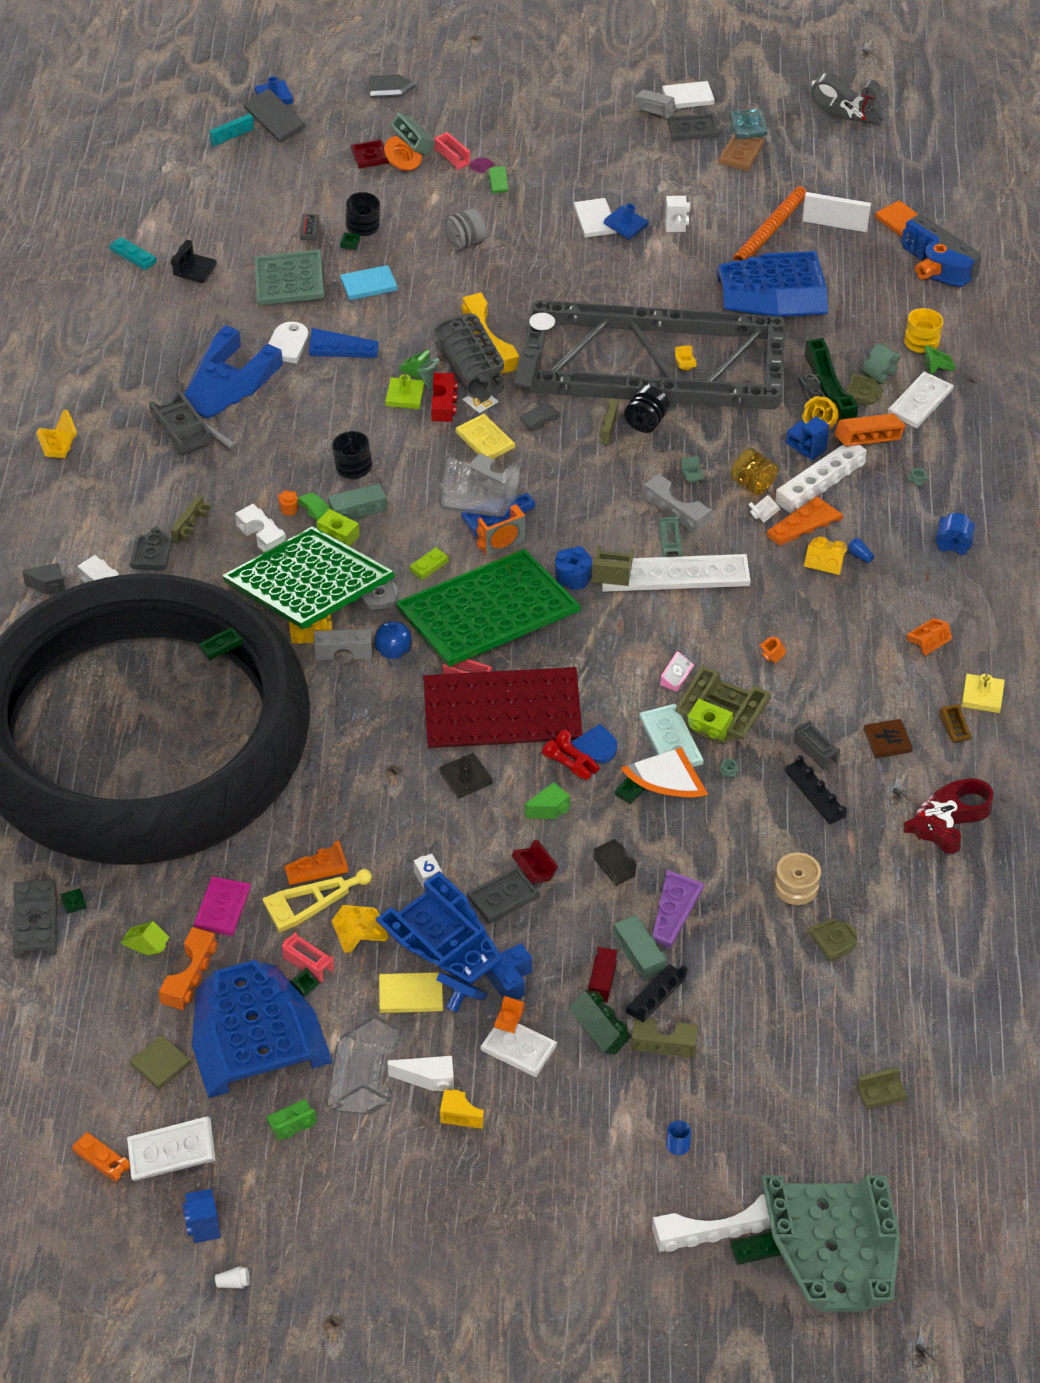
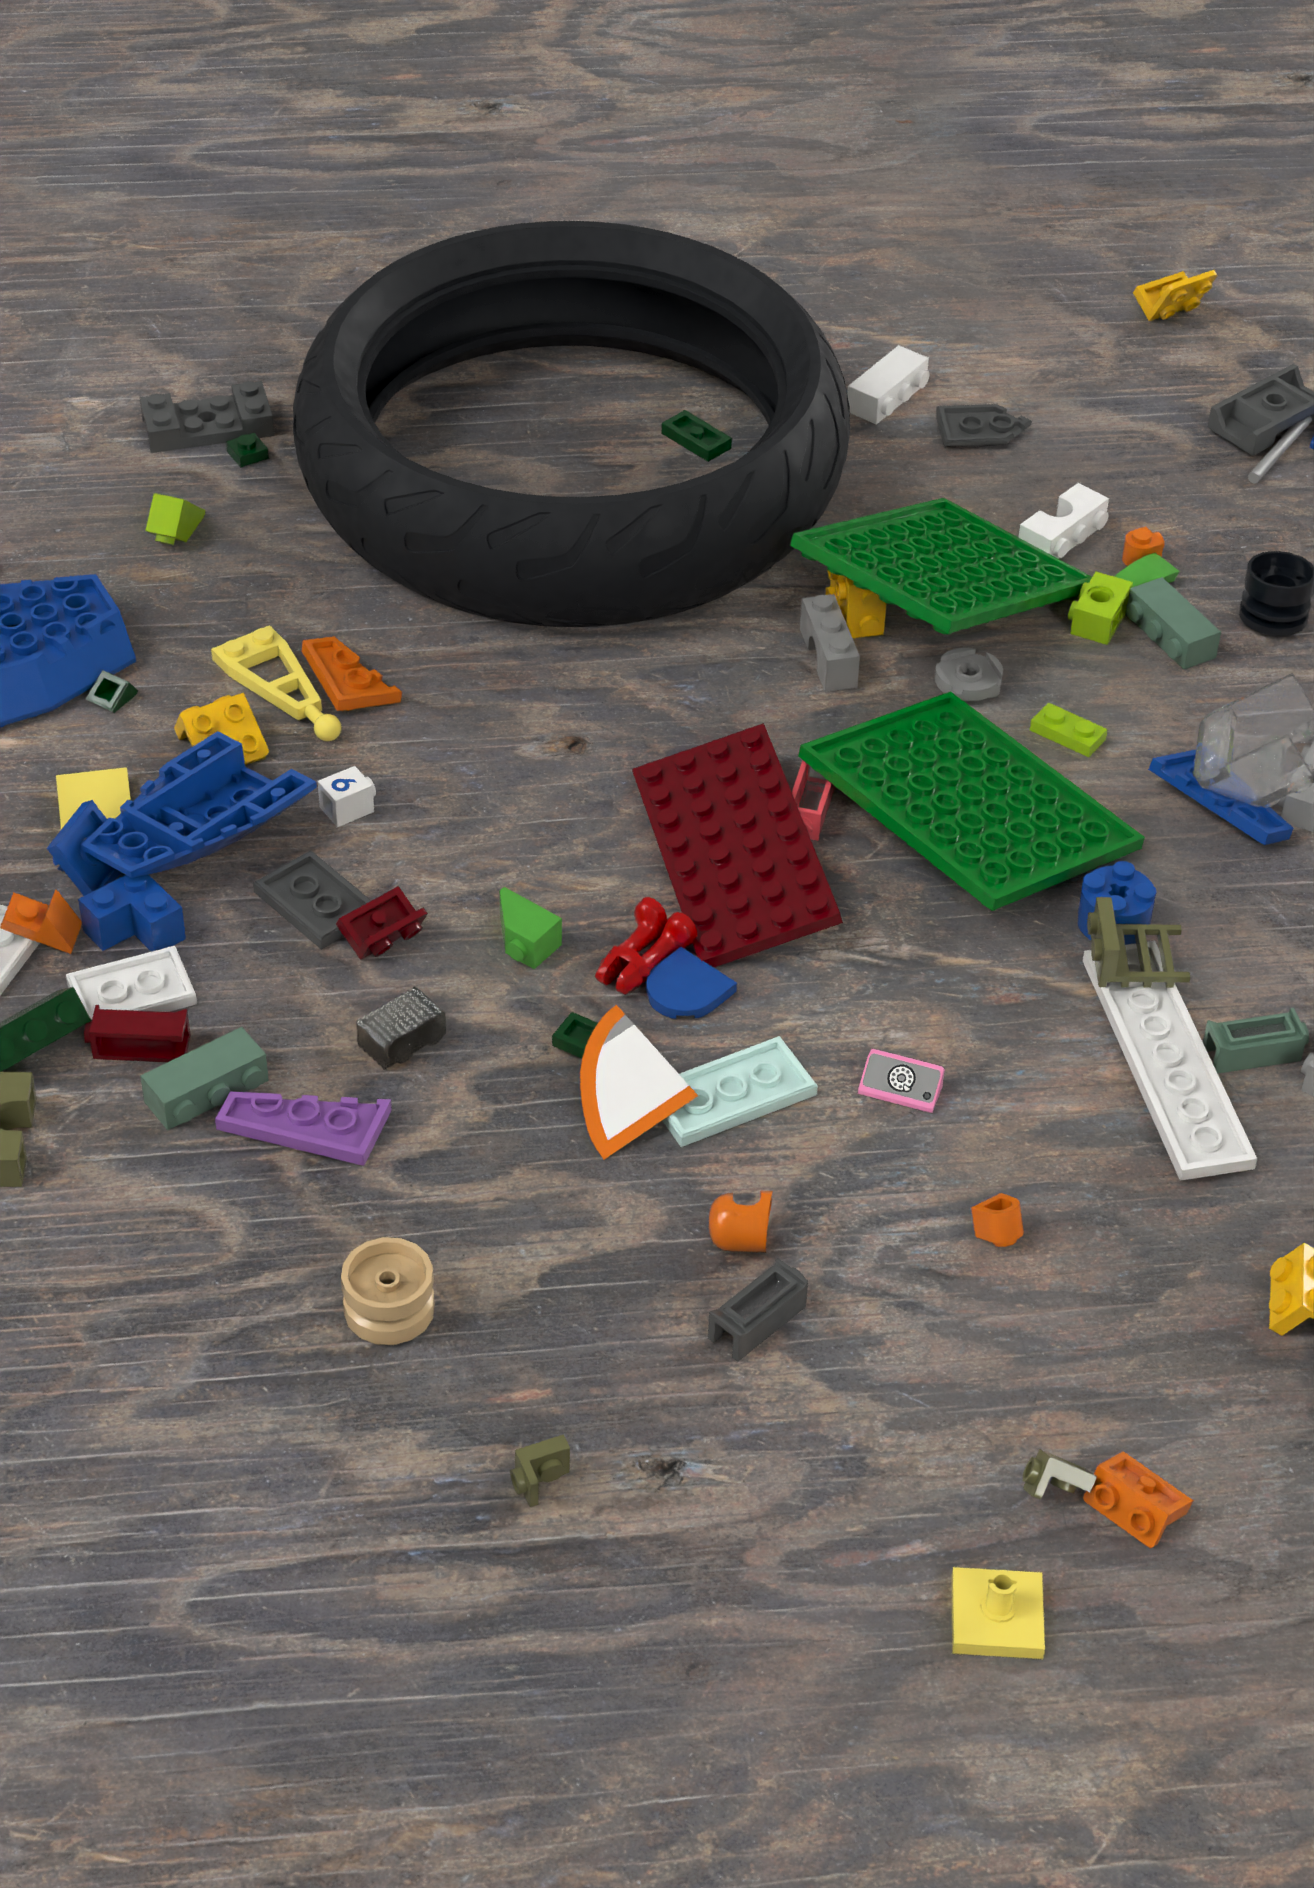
camera: 80 degrees right, 5 degrees down
(44, 578) = (873, 331): dark grey slope -> none
(179, 988) = (159, 573): orange arch -> none
(188, 519) = (1056, 447): olive plate -> none
(222, 906) = (255, 591): dark pink tile -> none
(306, 955) = (154, 684): coral window -> none
(393, 639) = (863, 697): blue cylinder -> none
(465, 775) = (577, 825): clear smoke tile -> none
(502, 534) = (1162, 801): orange panel -> none
(559, 980) = (136, 983): none -> white tile
(657, 992) = (94, 1103): black hinge -> none
(705, 711) = (768, 1124): lime brick -> none
(729, 767) = (669, 1178): sand green plate -> none
(744, 704) = (821, 1143): olive slope -> none
(769, 745) = (740, 1226): none -> orange helmet
(815, 791) = (641, 1322): black hinge -> none
(834, 938) = (263, 1376): olive tile -> none
(888, 738) = (815, 1438): reddish brown tile -> none
(901, 837) = (539, 1463): none -> olive bracket
(919, 658) = (1063, 1472): none -> bracket
(943, 809) = (624, 1540): dark red animal -> none
(955, 710) = (892, 1539): pearl gold slope -> none

